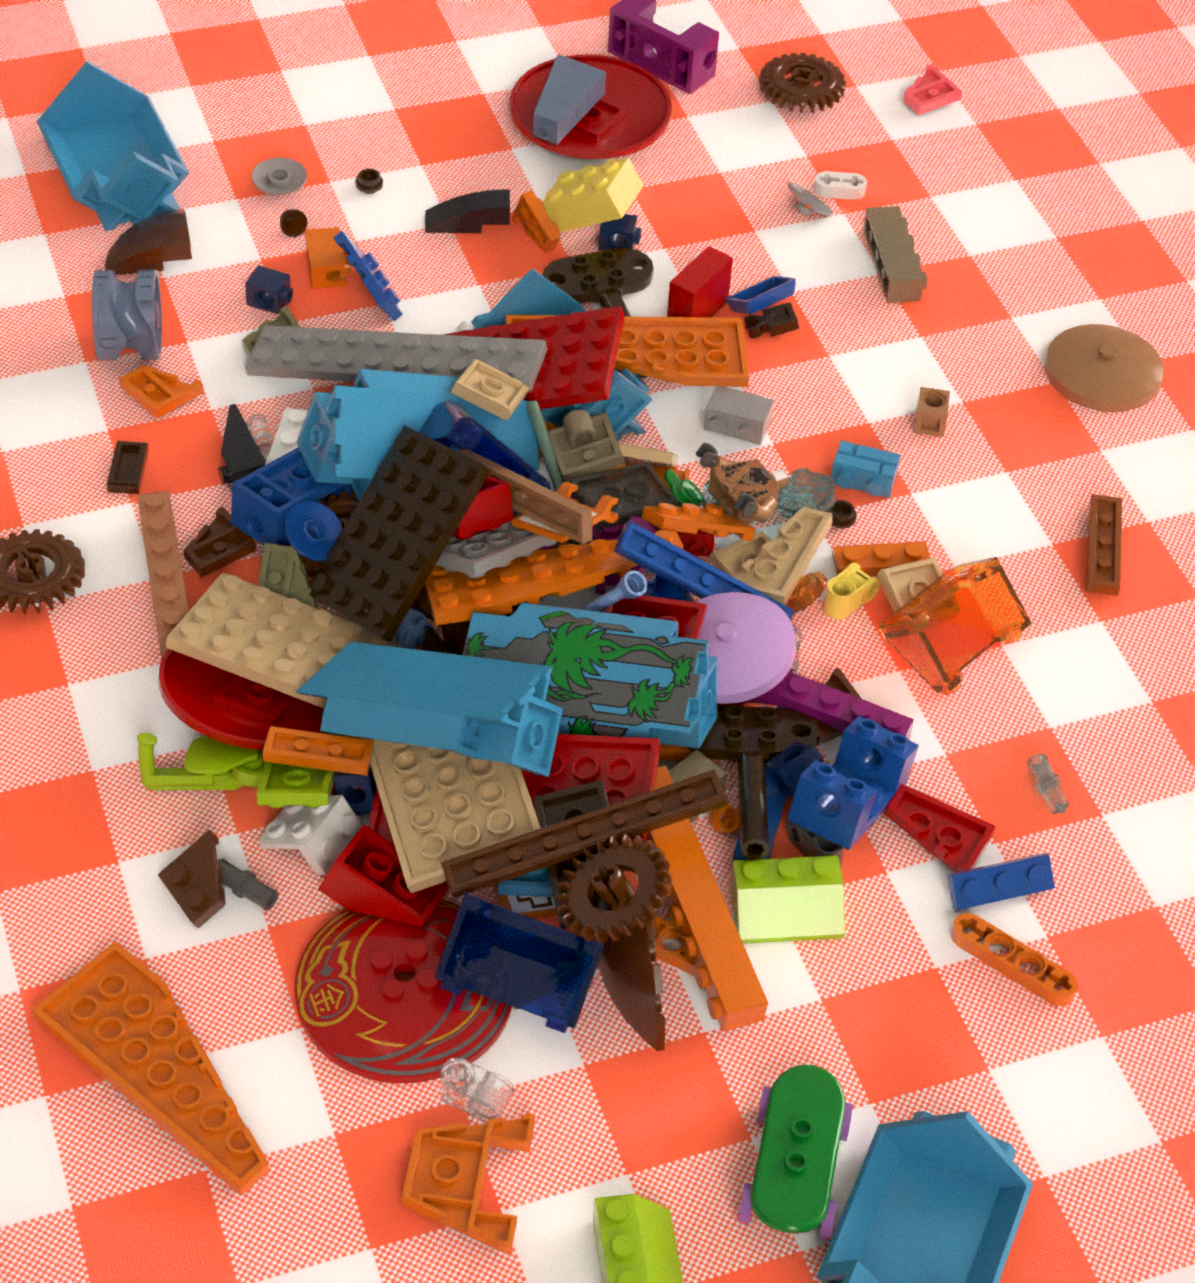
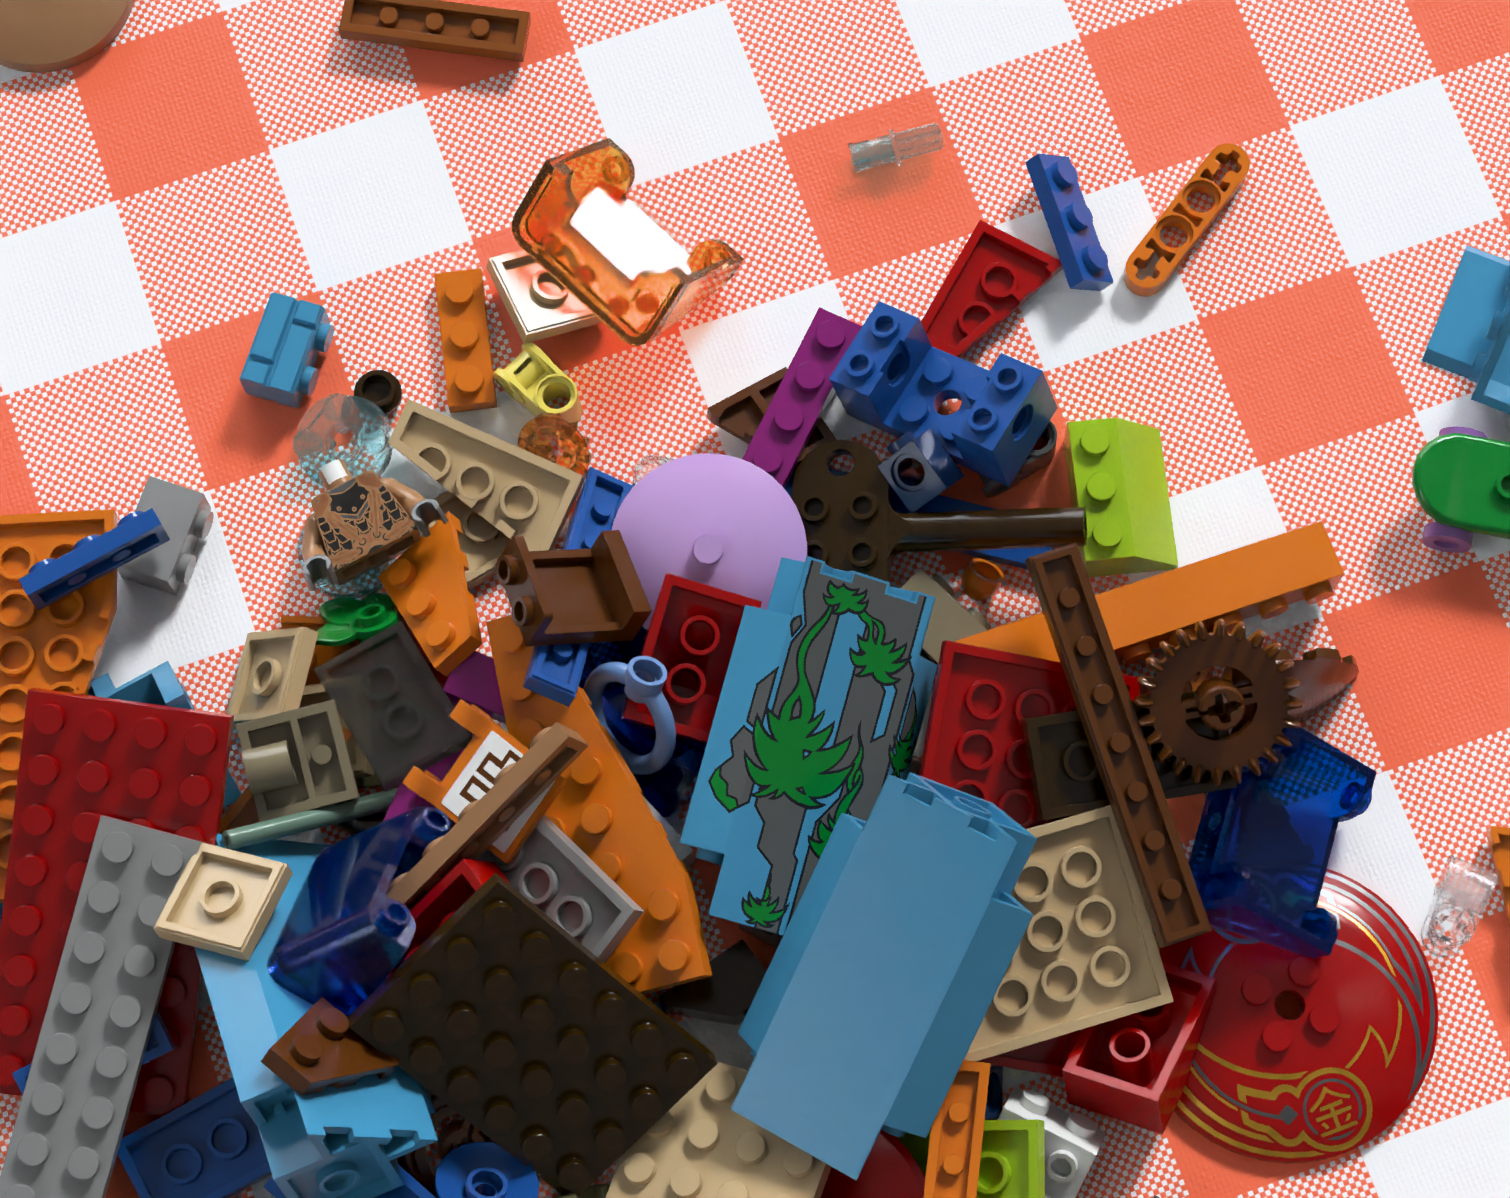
camera: 85 degrees left, 25 degrees up
(388, 412) = (325, 1053): none -> reddish brown wing
(690, 554) = (573, 592): none -> reddish brown panel
(713, 360) = (93, 558): none -> blue plate
(931, 411) = (165, 259): medium nougat brick -> none

